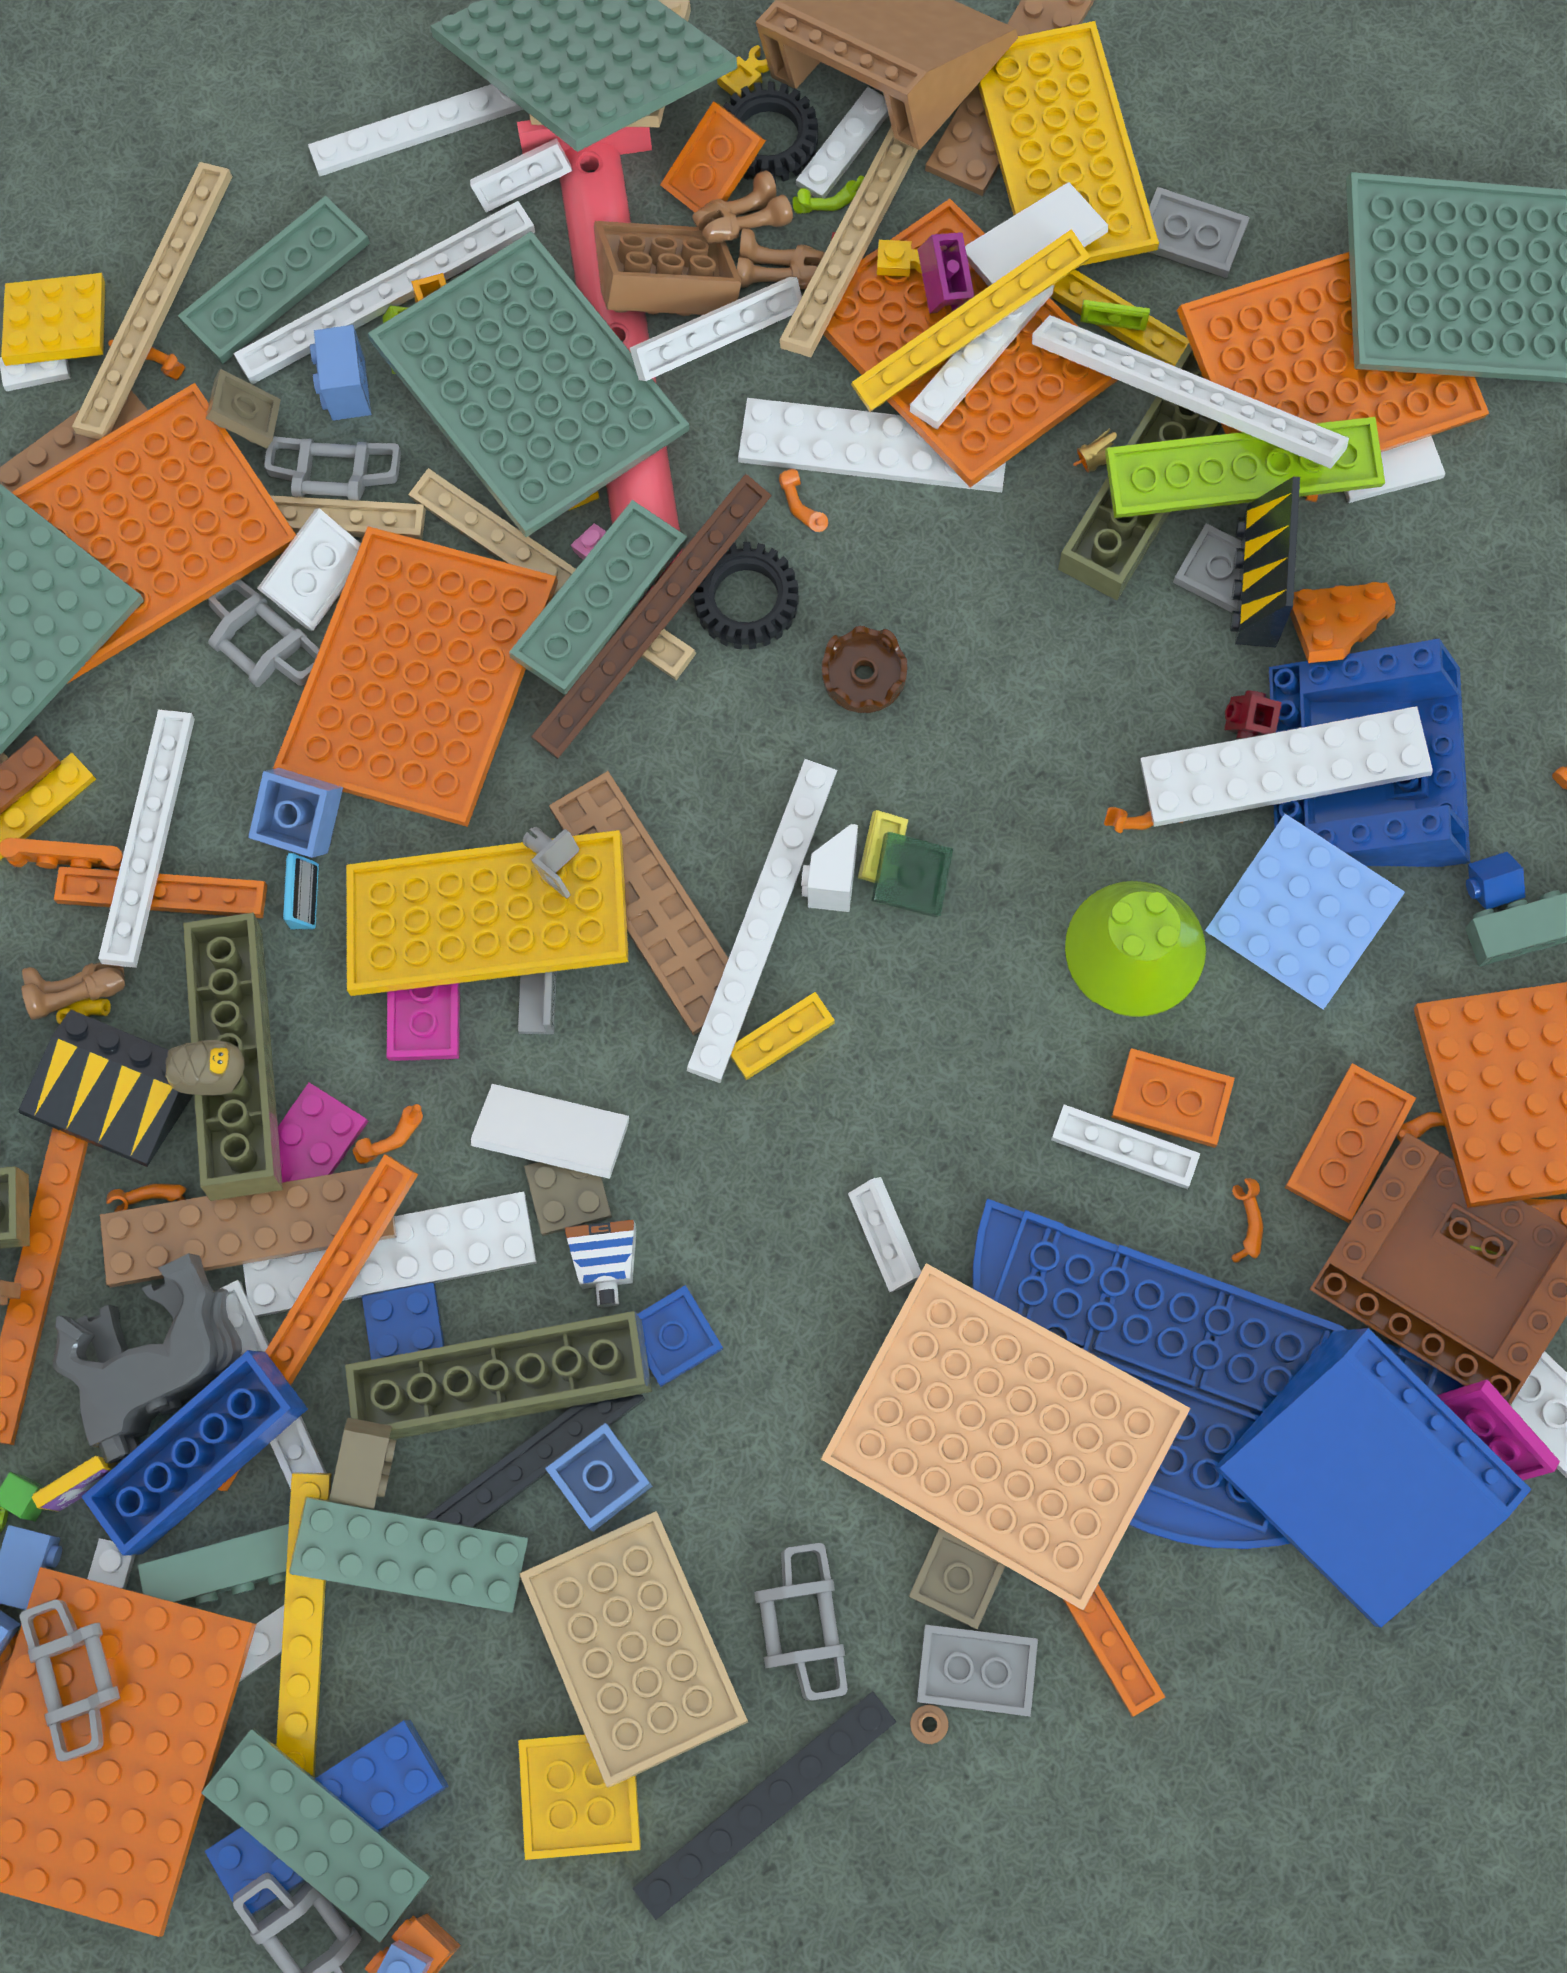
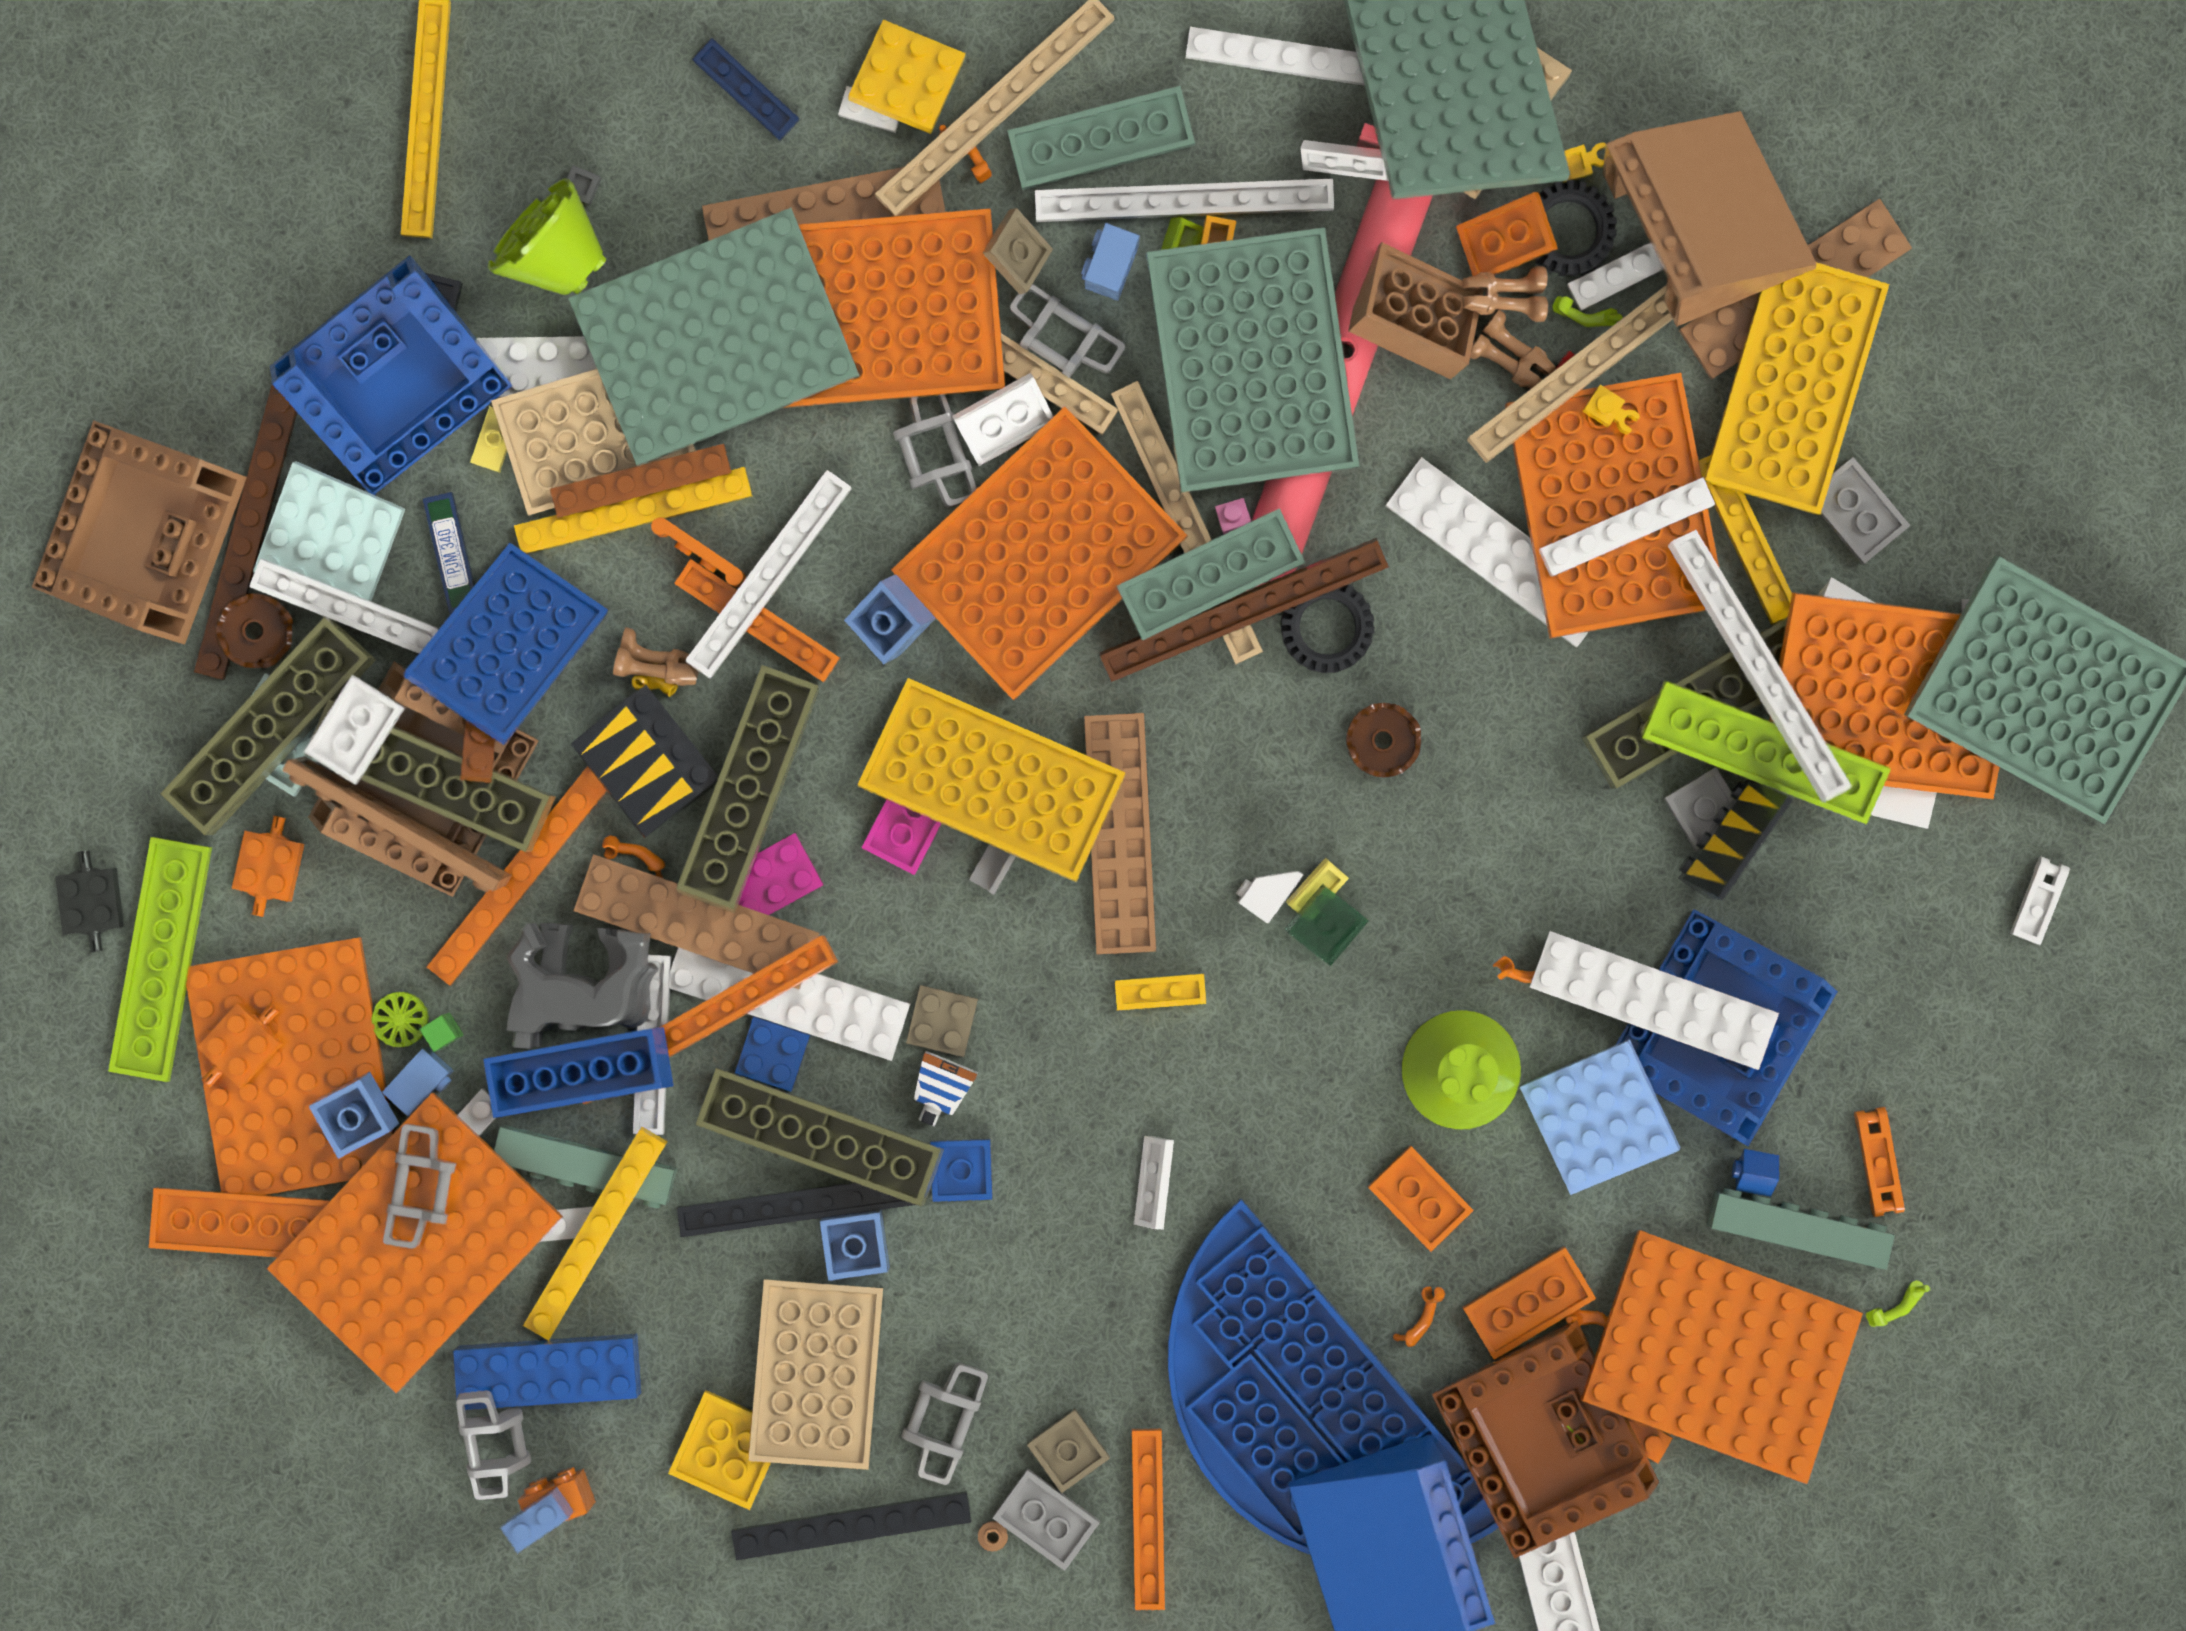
camera: 25 degrees right, 15 degrees up
(72, 1485) = (482, 1046): yellow tile -> none
(204, 1067) = (723, 798): dark tan piece -> none
(300, 892) = (862, 681): slope -> none
(316, 1835) = (535, 1384): sand green plate -> none
(363, 1463) = (691, 1148): dark tan brick -> none
(408, 1554) = (693, 1227): sand green plate -> none
(410, 1119) = (851, 904): orange piece -> none
(550, 1131) = (952, 971): white tile -> none
(551, 855) = (1063, 766): light grey bracket -> none
(716, 329) = (1428, 393): white plate -> none
(761, 922) = (1196, 896): white plate -> none
(814, 520) = (1415, 588): orange piece -> none
(945, 271) = (1632, 452): magenta brick -> none
(970, 320) = (1628, 507): yellow plate -> none
(1005, 1435) = (1156, 1375): light nougat plate -> none
(1032, 230) = (1721, 459): white tile -> none
(1094, 454) = (1663, 656): pearl gold piece -> none
(1114, 315) = (1751, 551): lime slope -> none
(1125, 1146) = (1364, 1215): white plate -> none
(1252, 715) = (1654, 945): dark red brick -> none
(1338, 617) = (1768, 904): orange plate -> none
(1501, 1429) = (1498, 1566): dark pink plate -> none

